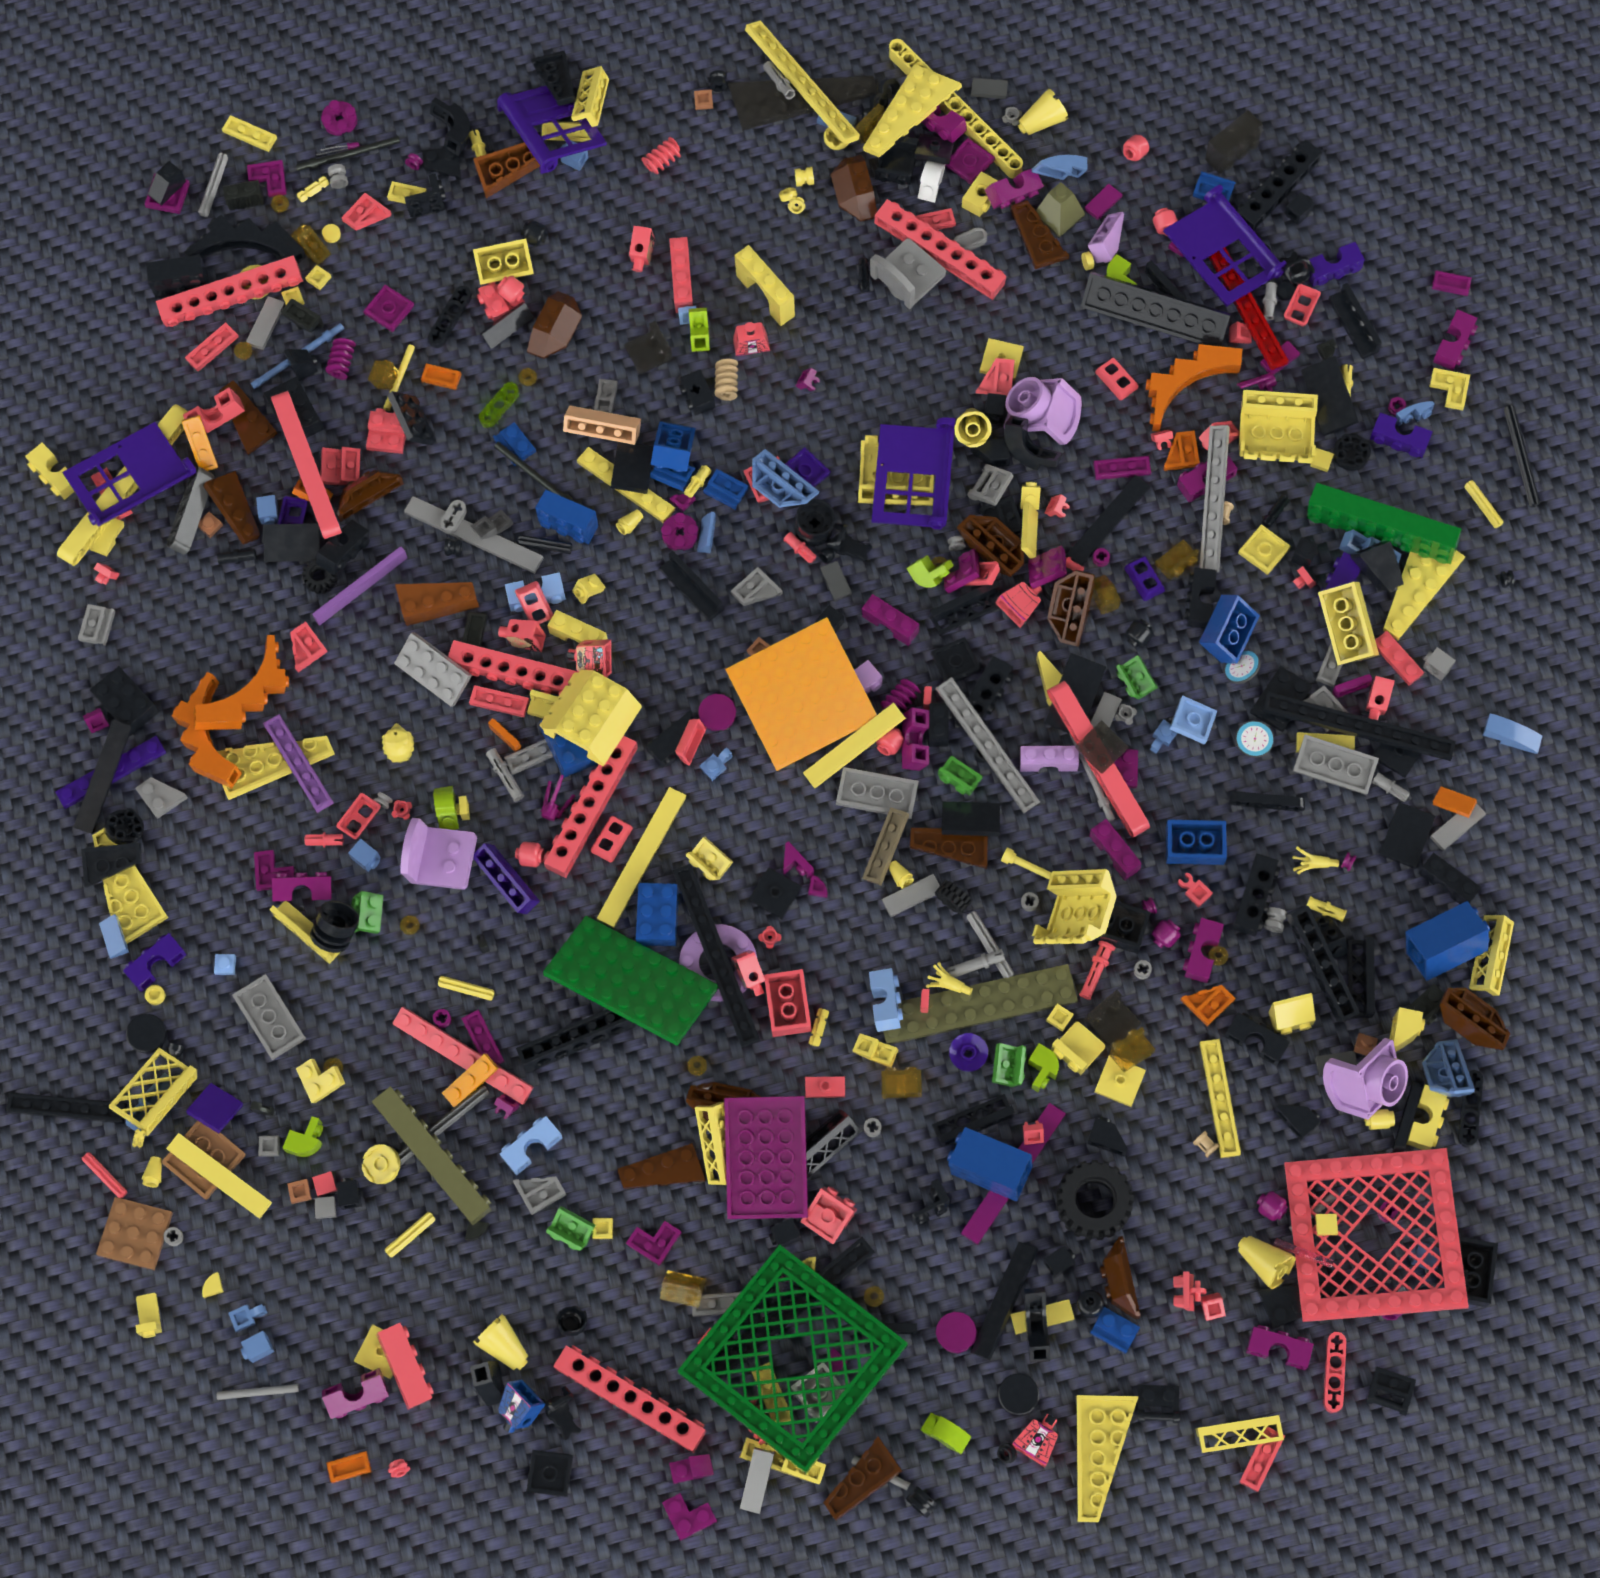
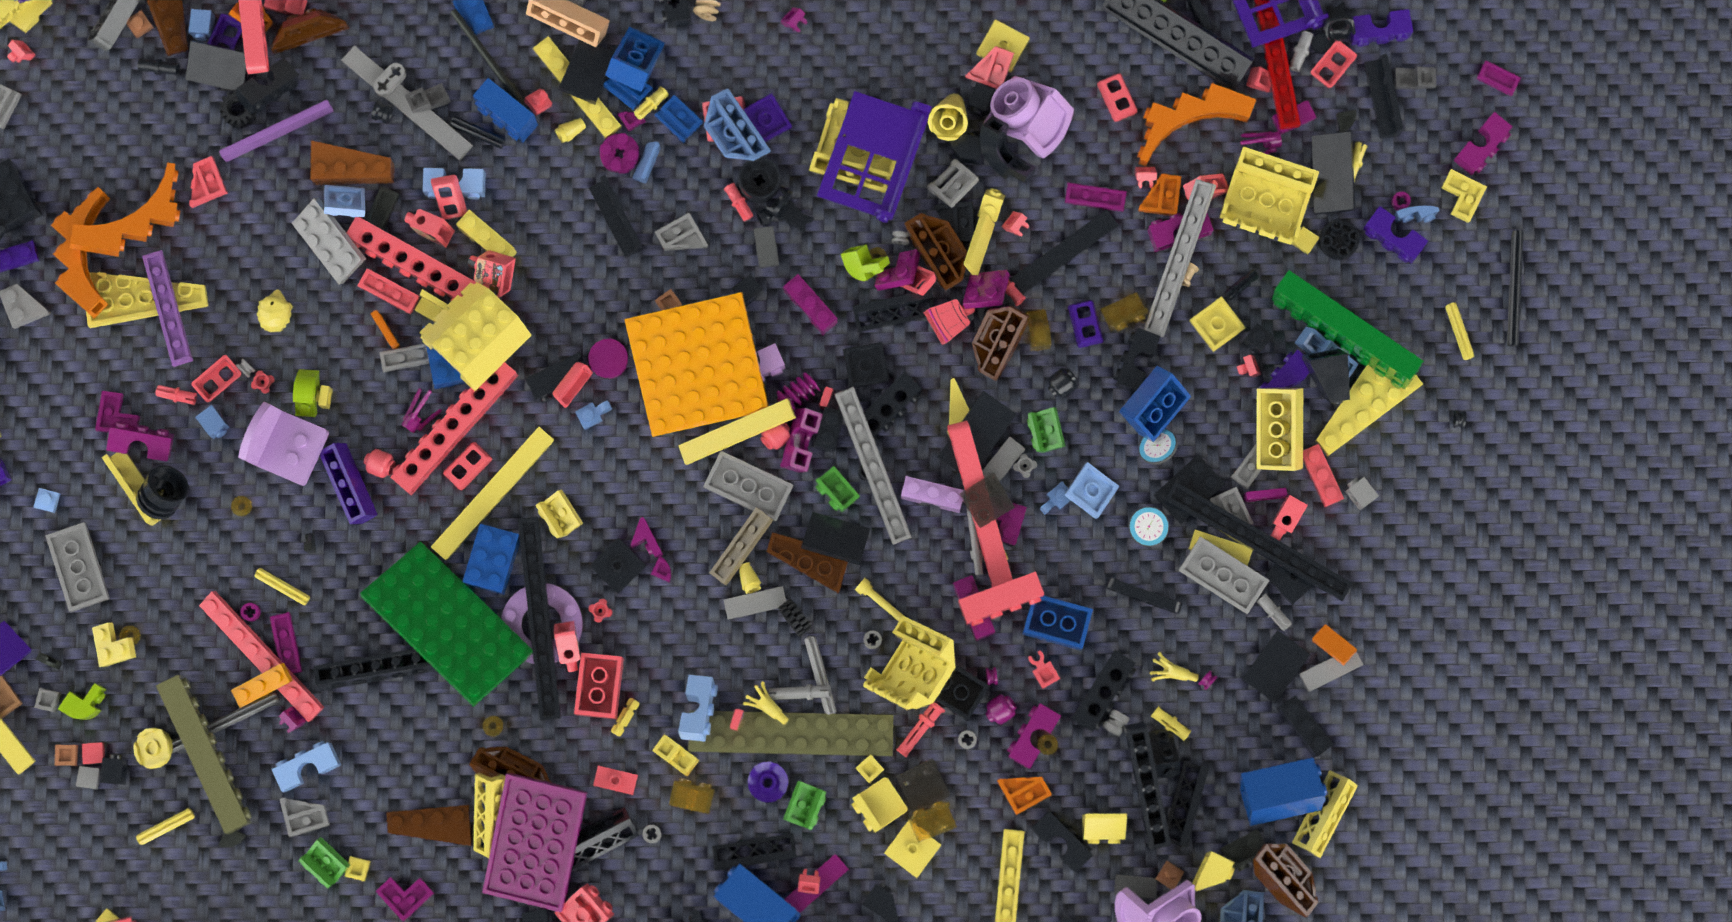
camera: 10 degrees right, 10 degrees up
(369, 910) = (202, 482): bright green bracket -> none
(439, 630) = (344, 201): none -> light blue plate
(501, 769) = (374, 368): light grey pin -> none
(587, 587) = (509, 191): light yellow bracket -> none
(595, 502) = (538, 101): none -> coral tile
(1047, 1063) = (844, 814): lime brick -> none
(1105, 553) = (1042, 285): magenta bush -> none
(1139, 830) = (1001, 598): none -> coral brick
(1377, 301) = (1414, 78): none -> flat silver slope
(1512, 733) = (1415, 587): medium blue slope -> none

